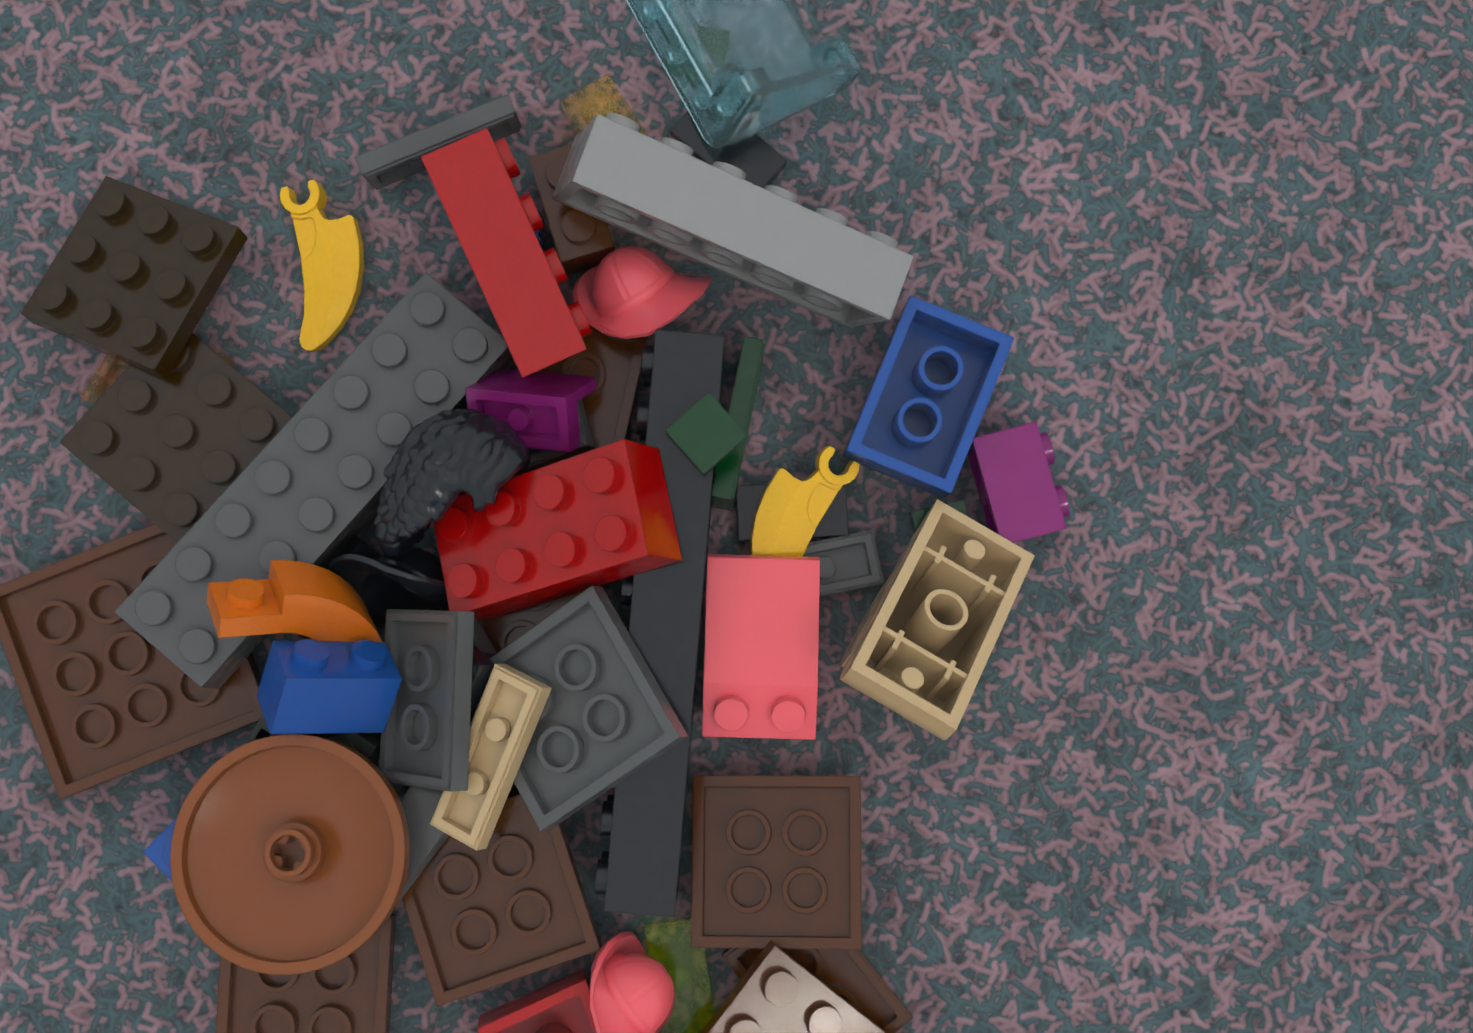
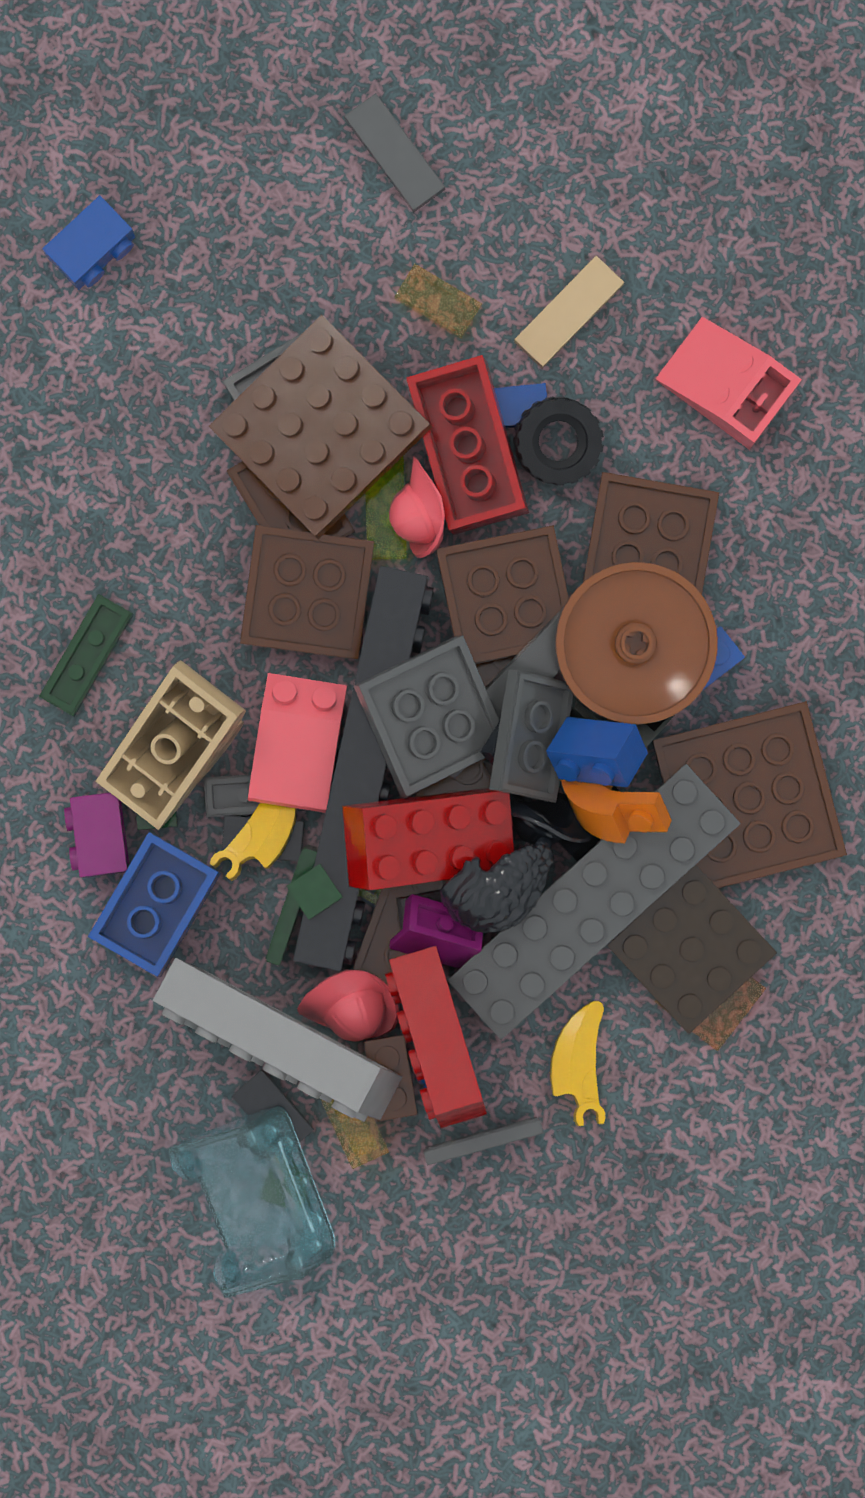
camera: 170 degrees left, 0 degrees up
(135, 276) = (713, 1068): dark brown plate -> none
(496, 750) = (483, 700): tan tile -> none
(1068, 731) = (86, 655): none -> dark green tile

